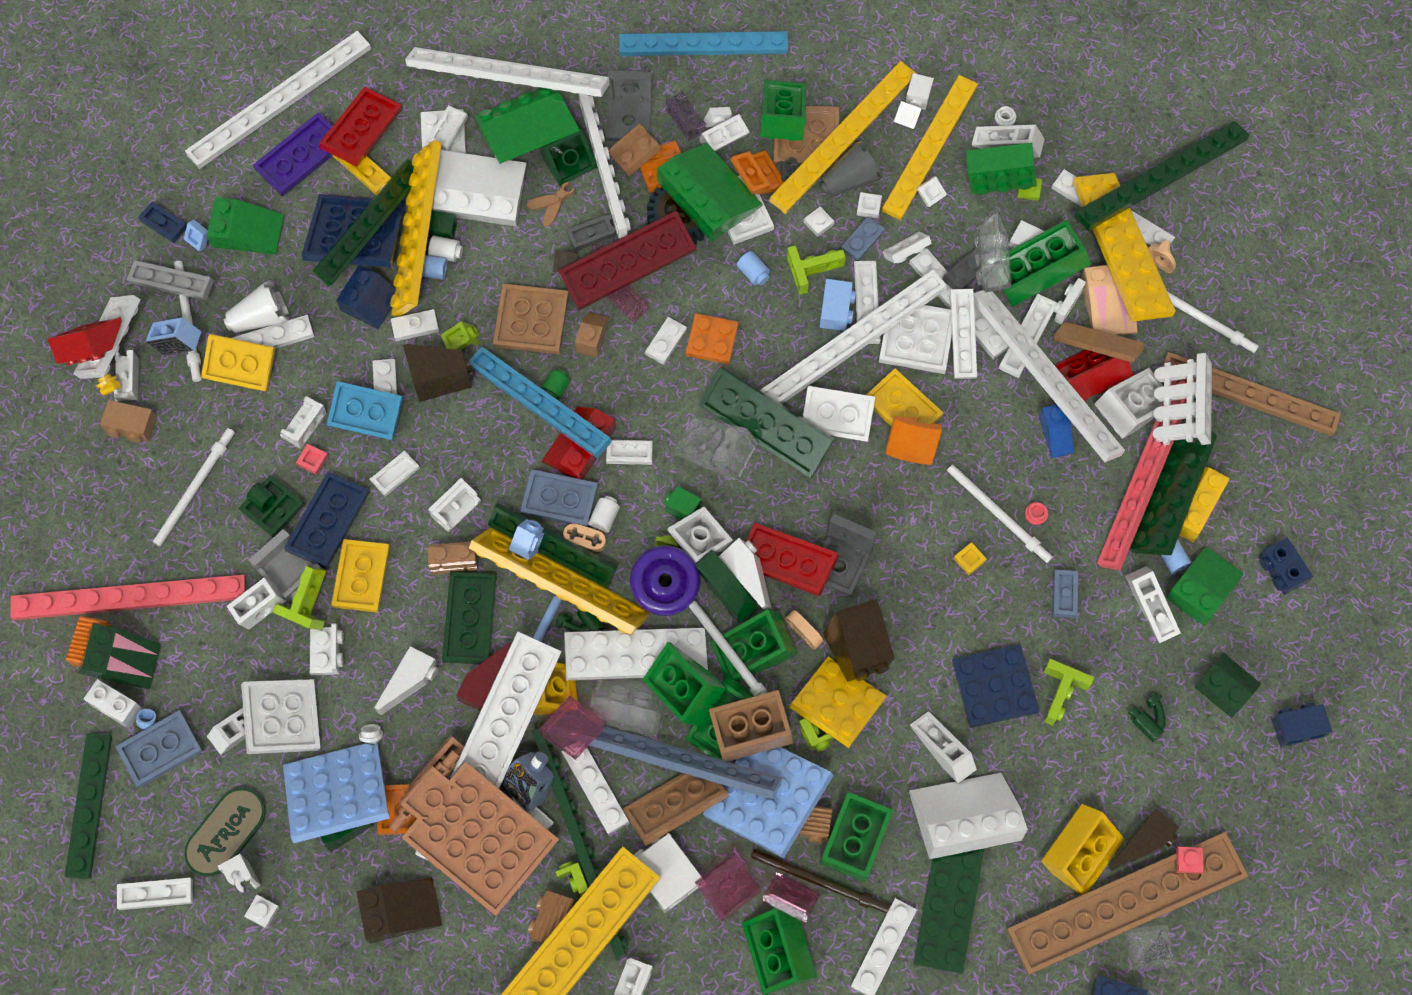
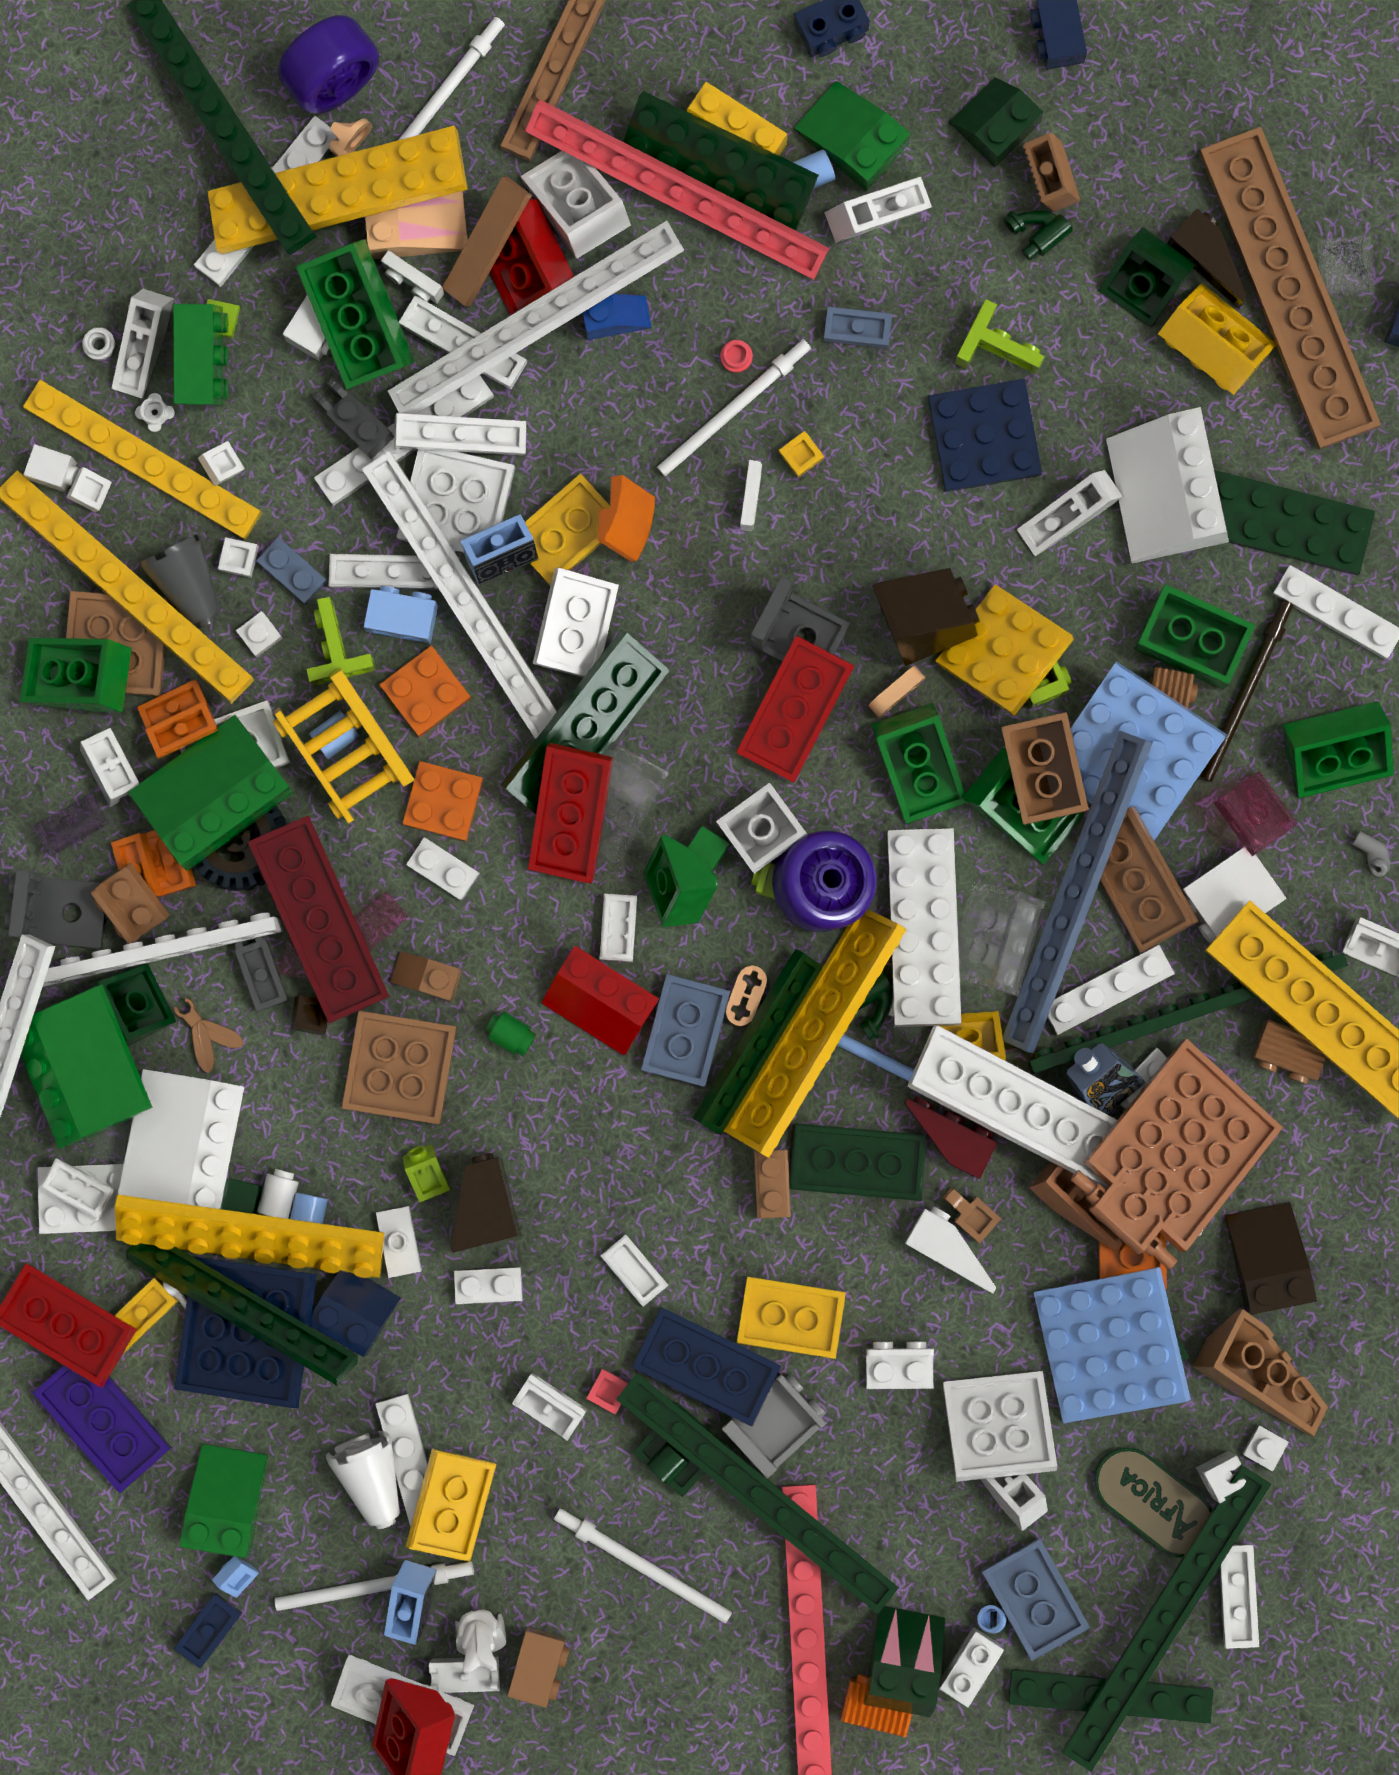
camera: 80 degrees left, 15 degrees up
(108, 384) = (478, 1697): yellow plate -> none
(140, 838) = (1164, 1620): none -> dark green plate
(147, 377) = (479, 1636): none -> white hair
(170, 280) = (311, 1613): light grey plate -> none
(237, 554) = (757, 1493): none -> dark green plate
(255, 603) = (833, 1465): white brick -> none
(304, 600) = (844, 1403): lime bracket -> none
(320, 900) = (1253, 1366): none -> medium nougat wedge
(365, 410) = (538, 1313): dark azure plate -> none
(371, 734) = (1025, 1300): white plate -> none
(430, 697) = (974, 1216): none -> medium nougat plate
(454, 505) = (690, 1181): white hinge -> none
(527, 539) = (754, 1075): light blue window -> none
(540, 402) = (543, 1054): dark azure plate -> none
(572, 727) = (1034, 1015): clear pink tile -> none
(578, 881) = (1240, 1015): lime bracket -> none
(604, 514) = (713, 965): white brick -> none
(658, 486) = (679, 883): none -> green slope
(683, 685) = (981, 860): green slope -> none
(702, 982) = (1376, 853): none -> light grey arm
(705, 412) = (570, 813): none -> red plate
(717, 116) = (79, 775): white plate -> none
(725, 586) = (836, 795): dark green slope -> none
(747, 568) = (813, 764): white slope -> none
(756, 688) = (988, 758): white bar -> none
(765, 277) = (356, 717): none -> yellow fence
(782, 166) = (170, 681): pearl dark grey plate -> none
(786, 324) = (425, 691): none -> orange plate
(791, 897) = (1274, 729): clear pink tile -> none
(884, 357) = (499, 549): none -> brick
(906, 247) = (312, 506): white plate -> none
(937, 525) = (751, 495): none -> white tile
(956, 152) = (154, 402): none -> white plate
(992, 253) = (343, 379): clear slope -> none
(1125, 796) = (1146, 276): none -> dark green slope
(1189, 860) = (1239, 200): coral plate -> none
(1194, 722) = (1051, 172): none -> medium nougat brick
(1200, 409) = (607, 123): white fence -> none
(1209, 235) = (328, 64): none -> dark purple wheel

